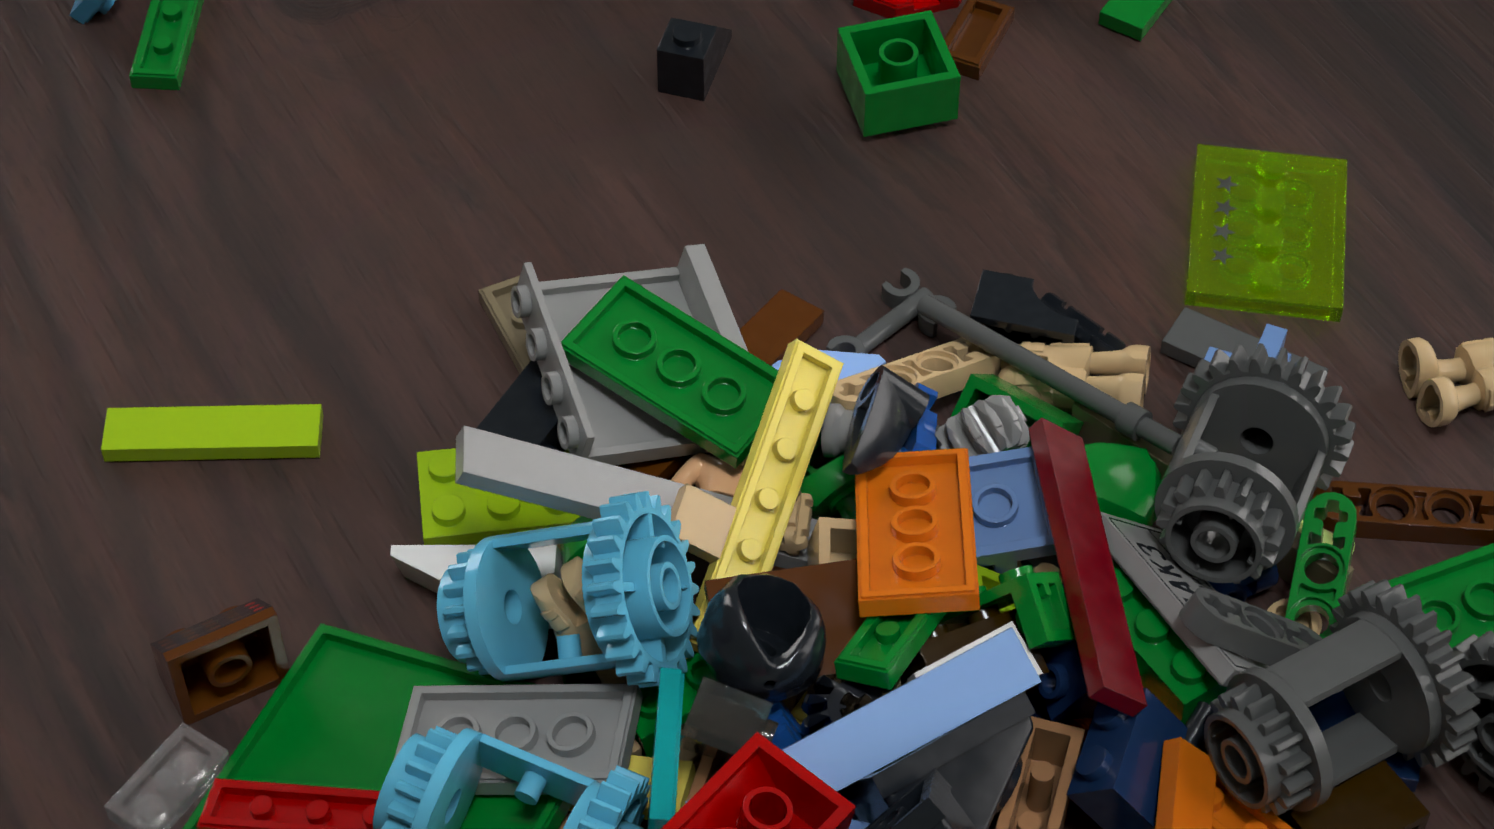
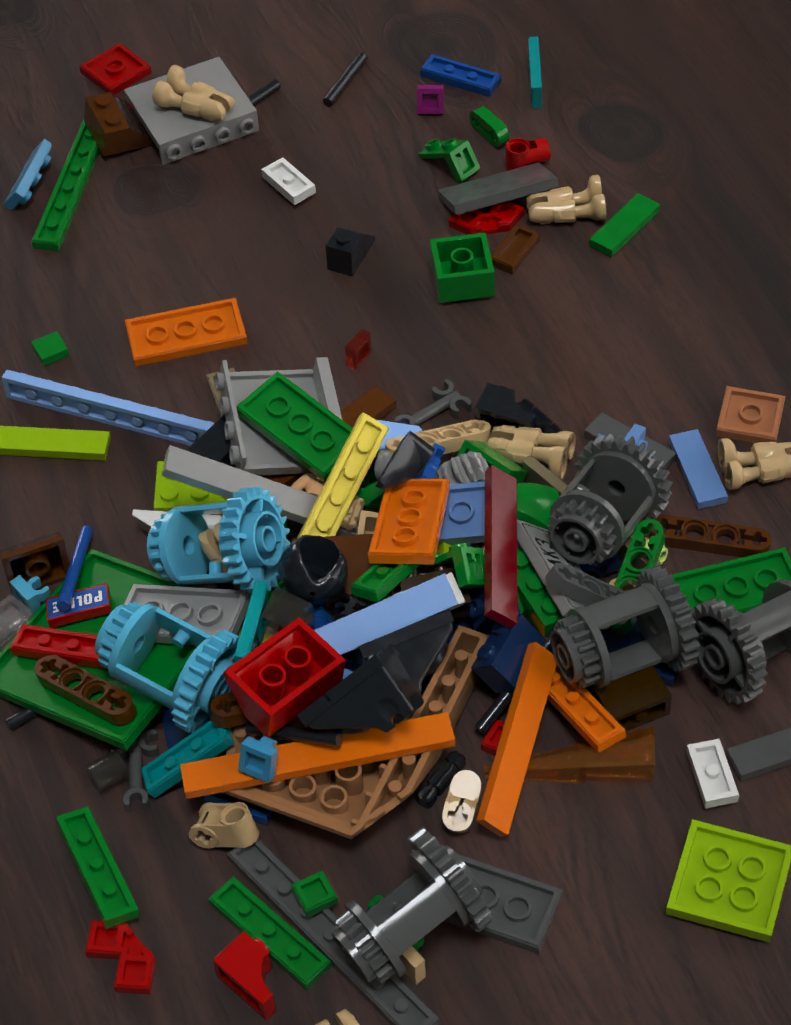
camera: 10 degrees right, 0 degrees up
(189, 262) = (50, 348): none -> green tile
(212, 718) = (27, 592): none -> medium azure tile
(297, 665) = (74, 568): none -> blue bar
(308, 364) = (103, 408): none -> light blue plate
(315, 734) = (84, 605): none -> tile
(428, 216) = (185, 332): none -> orange tile
(703, 521) = (297, 508): tan tile -> none
(742, 226) = (358, 349): none -> clear red tile
(1128, 418) = (549, 470): dark grey bar -> none
(1267, 233) = (660, 373): clear neon green plate -> none
(1376, 400) = (698, 469): none -> medium blue tile
(1437, 295) = (750, 415): none -> nougat tile

